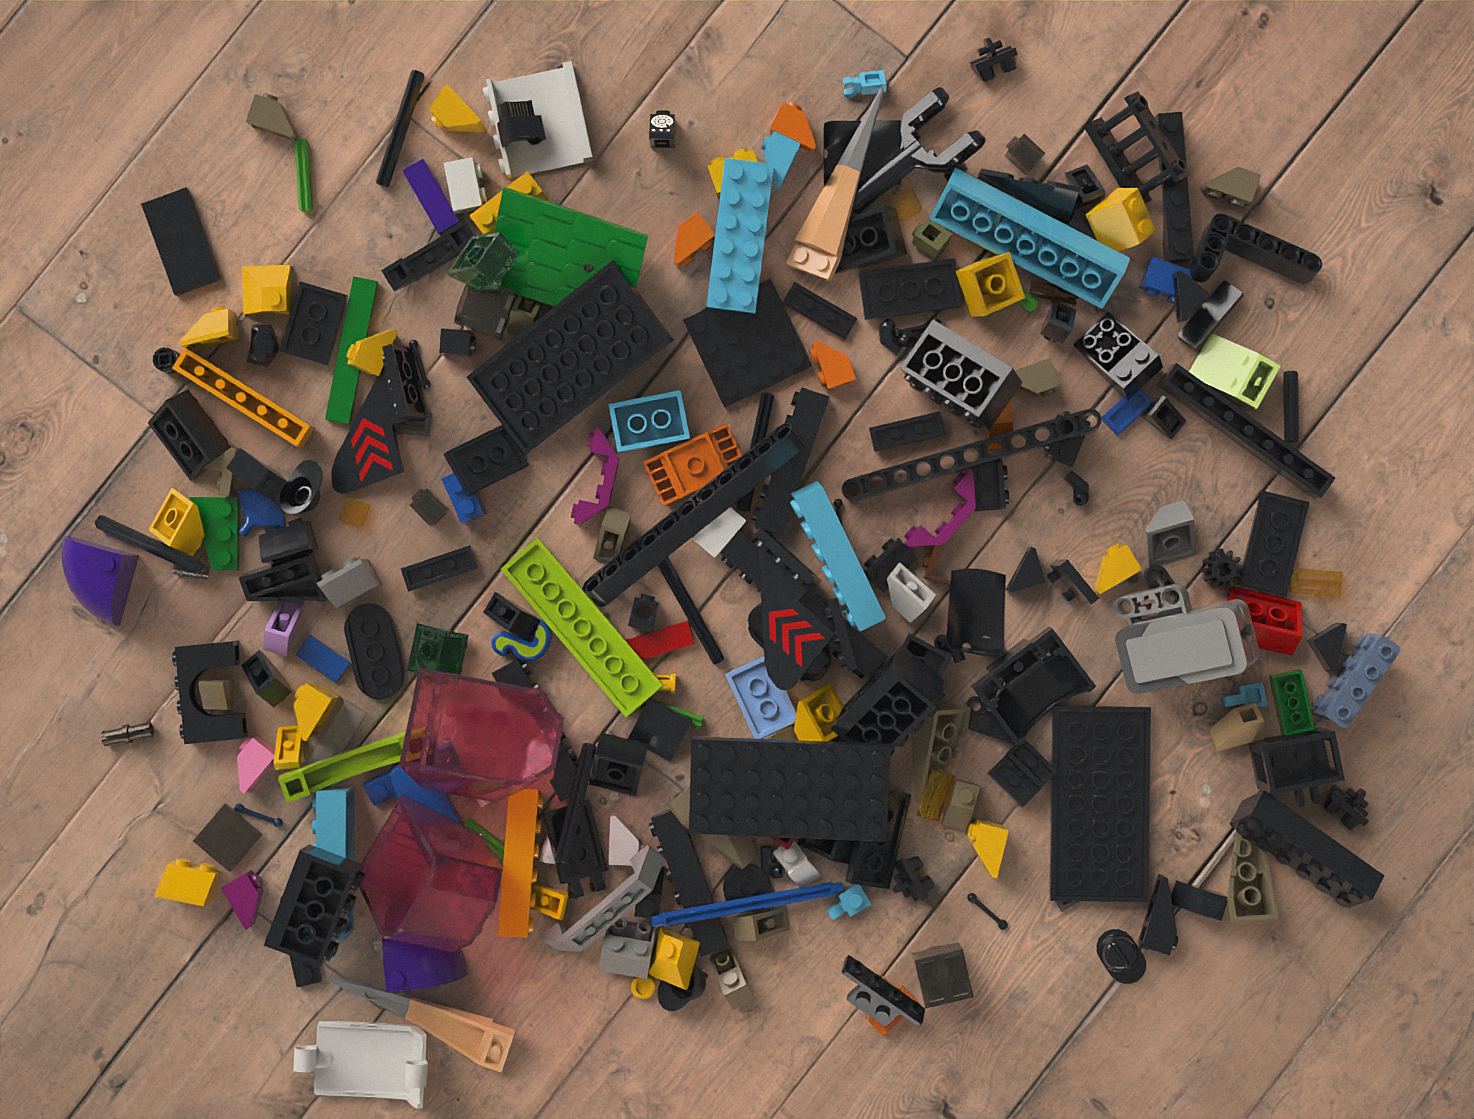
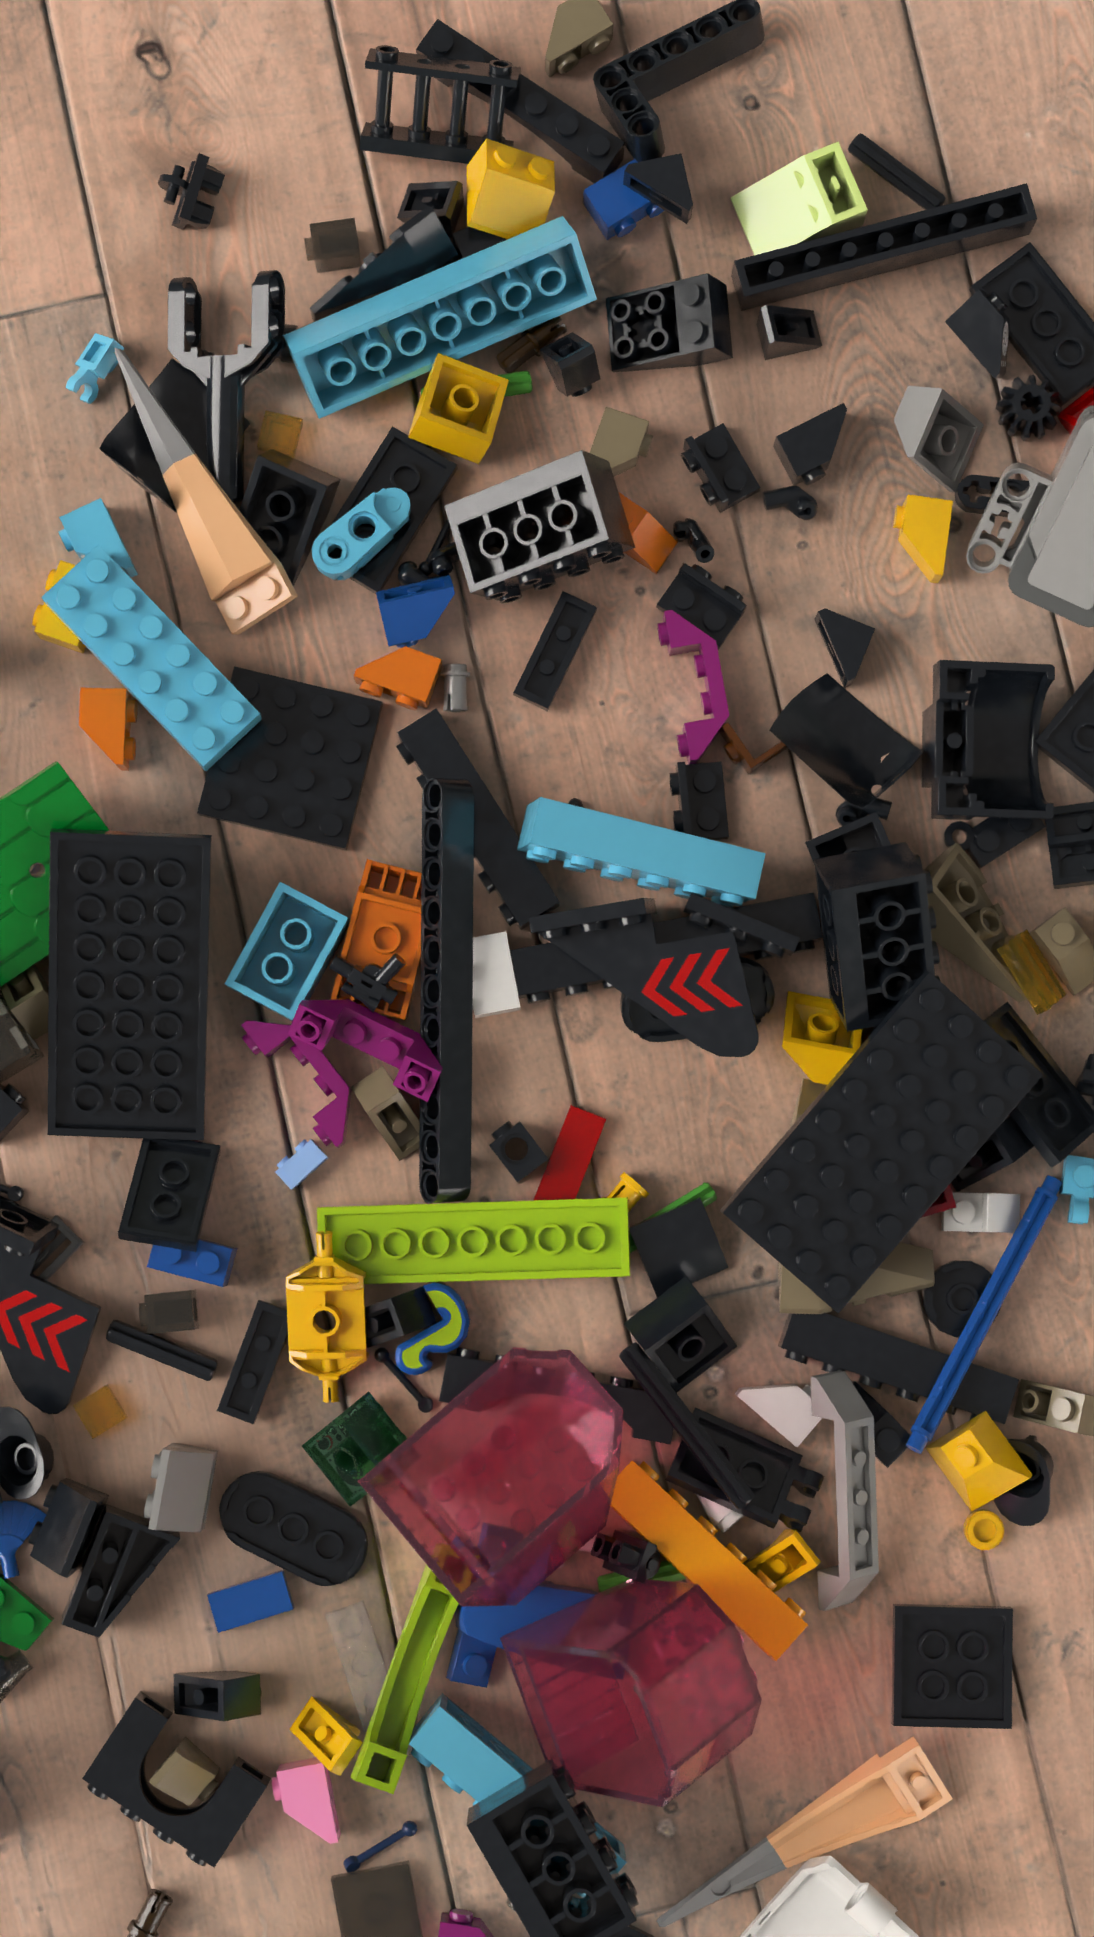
camera: 55 degrees left, 5 degrees down
(283, 627) = (169, 1619): lavender slope -> none
(313, 708) = (301, 1663): yellow slope -> none
(407, 517) = (162, 1350): none -> black axle
(419, 967) = (735, 1793): dark purple brick -> none
(486, 666) = (425, 1403): none -> black hinge
(490, 823) = (627, 1555): none -> black hips
(505, 579) = (333, 1287): none -> yellow plate
(552, 512) = (301, 1164): none -> light blue piece
(564, 1022) = (952, 1666): none -> black plate
(628, 947) = (921, 1508): light grey slope -> none
(642, 495) = (372, 1033): none -> magenta slope
(667, 475) = (370, 982): none -> black piece
(691, 611) = (563, 1091): black axle -> none
(759, 433) = (412, 833): black axle -> none
(760, 923) = (1021, 1317): dark tan slope -> none
(761, 702) = (740, 1092): light blue plate -> none
(769, 864) = (956, 1247): black arm -> none
(793, 124) = (72, 487): orange slope -> none
(819, 310) = (322, 639): black tile -> none
(848, 396) = (455, 687): none -> light grey pin
(870, 344) = (413, 609): none -> blue slope
(907, 290) = (383, 510): none -> medium azure piece
(908, 593) = (755, 805): white slope -> none
(931, 238) = (344, 435): olive brick -> none
(980, 447) = (648, 575): black beam -> none
(1018, 460) = (698, 542): none -> black arm
(1073, 581) = (902, 589): black tile -> none
(1113, 476) = (810, 446): none -> black slope
(1126, 411) = (744, 372): blue tile -> none
(1210, 315) = (709, 181): black tile -> none
(1243, 516) = (984, 330): none -> black slope

